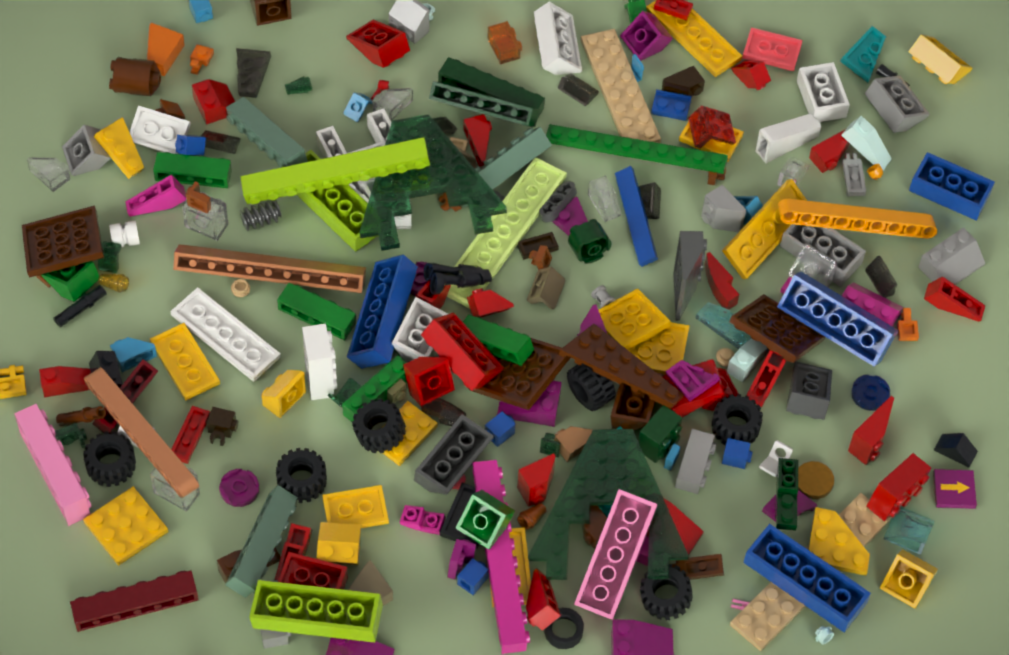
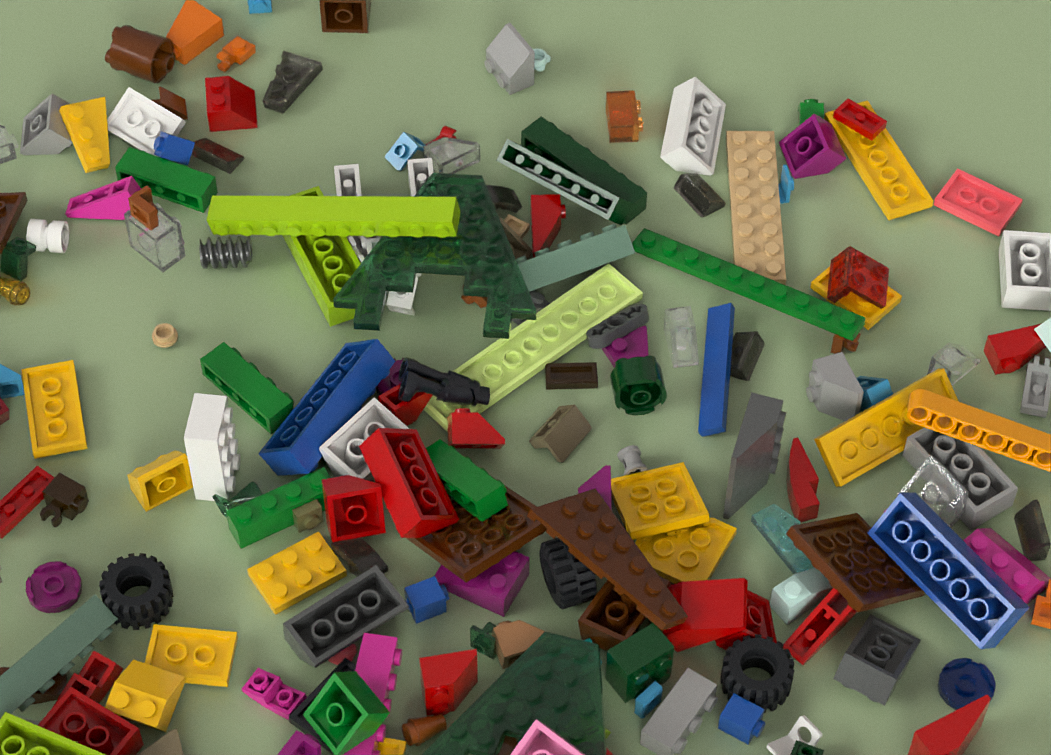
camera: 20 degrees right, 5 degrees down
(225, 334) = (120, 388): white plate -> none
(265, 133) = (269, 154): sand green brick -> none
(269, 268) = (210, 320): nougat brick -> none
(299, 86) = (342, 111): clear green cone -> none
(375, 413) = (265, 568): black tyre -> none
(379, 42) = (464, 83): red slope -> none
(541, 258) = (568, 391): dark orange tile -> none
(671, 105) = (816, 241): blue plate -> none
(685, 82) = (842, 217): dark brown slope -> none
(691, 379) = (704, 598): magenta wing -> none
(723, 356) = (770, 580): tan plate -> none
(752, 74) = (939, 226): red slope -> none
(786, 136) = (958, 314): white slope -> none

